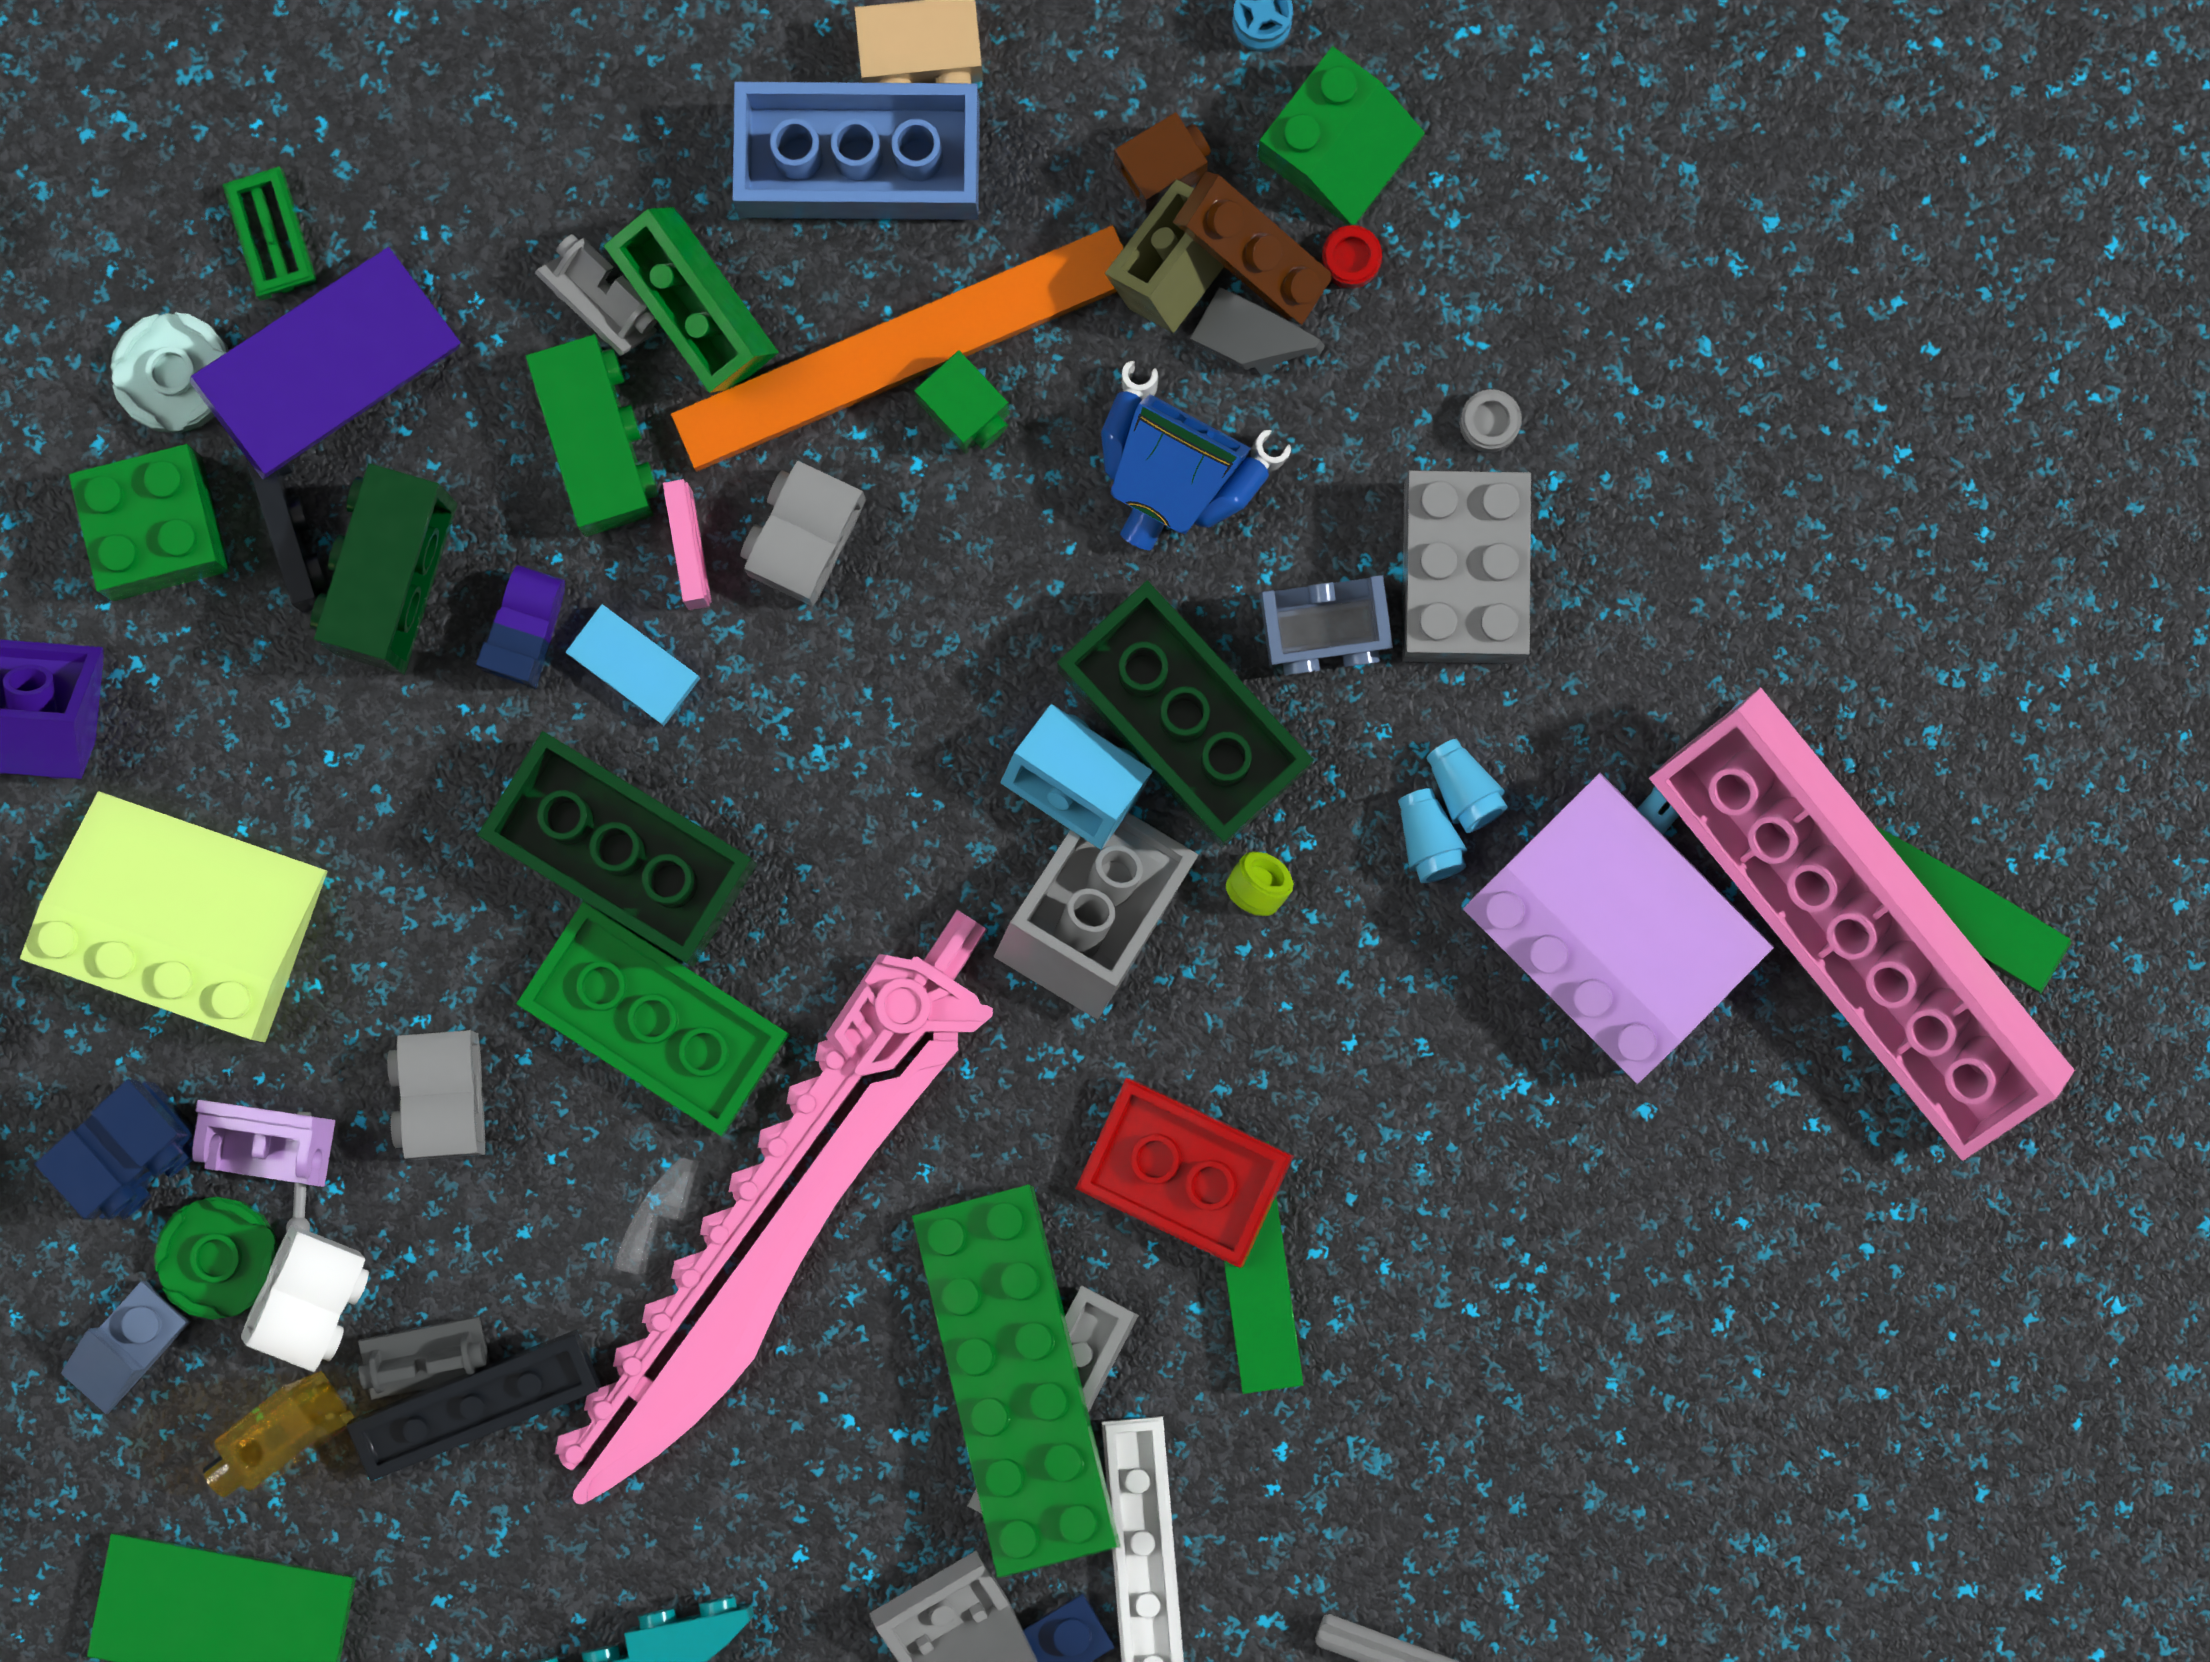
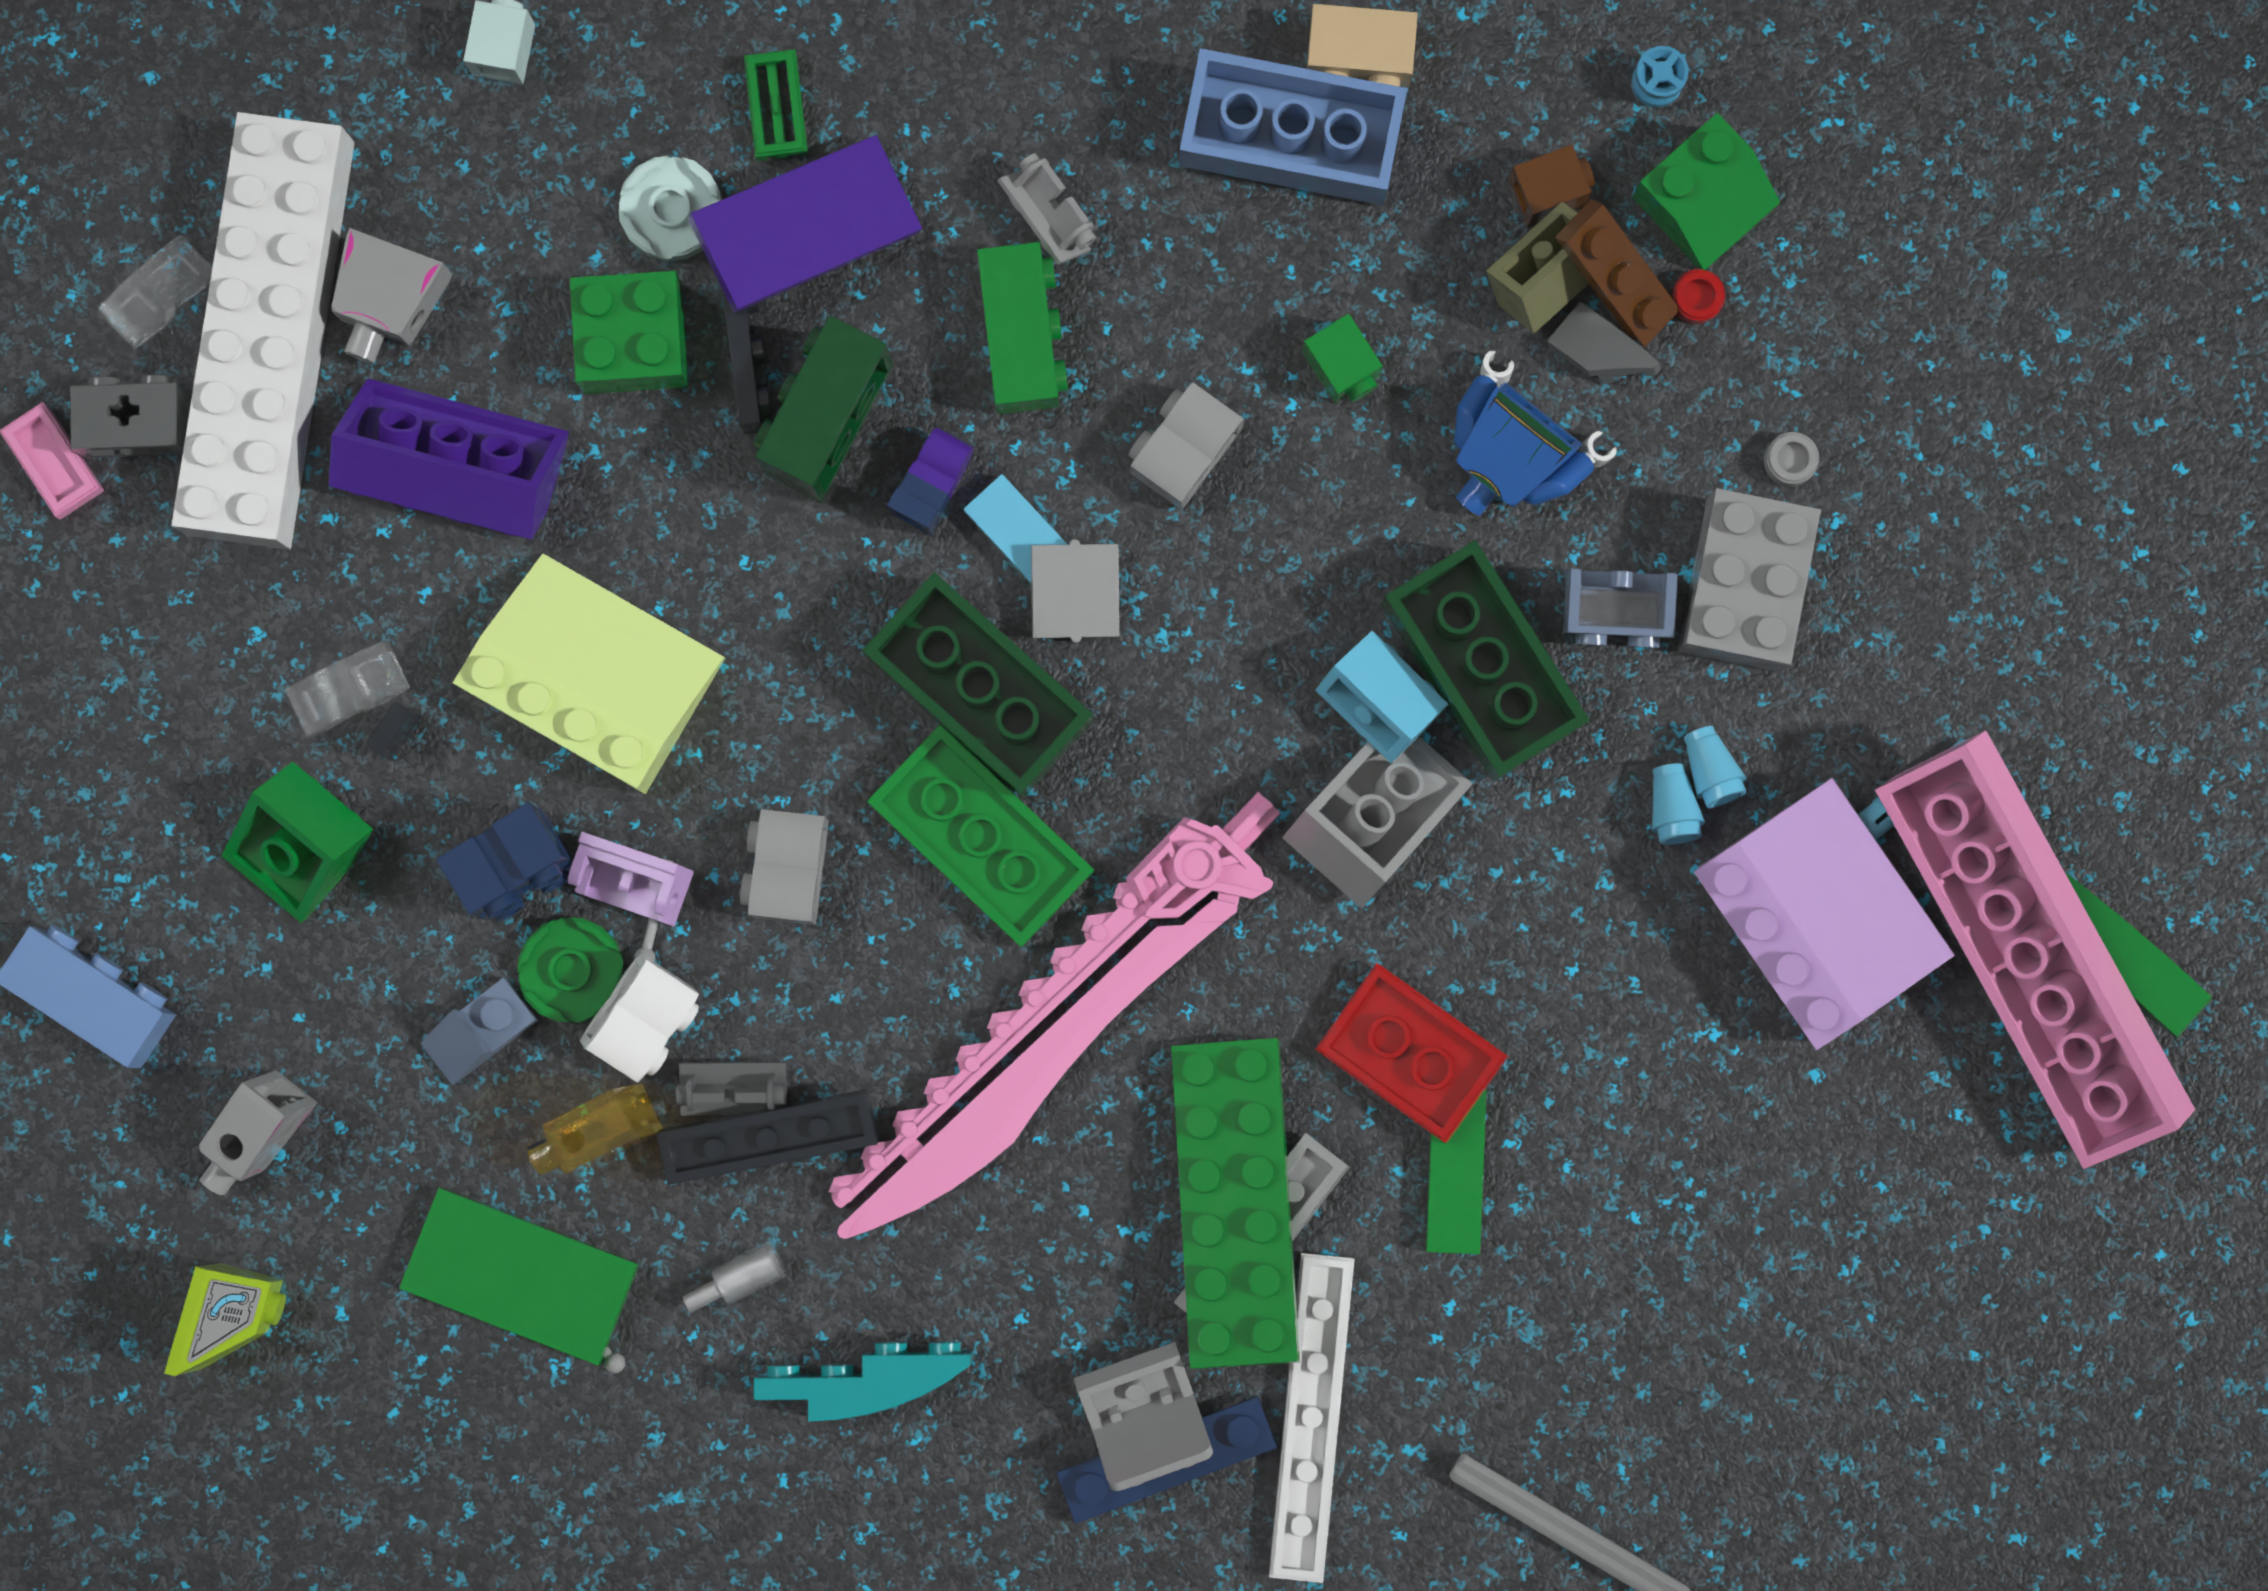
camera: 10 degrees right, 0 degrees up
(471, 1570) = (739, 1277): none -> clear piece
(666, 1199) = (963, 992): clear slope -> none
(687, 544) = (1084, 436): bright pink tile -> none
(691, 298) = (1127, 227): green brick -> none
(709, 720) = (1075, 590): none -> light grey piece
(898, 350) = (1295, 304): orange tile -> none
(1259, 884) = (1520, 818): lime tile -> none

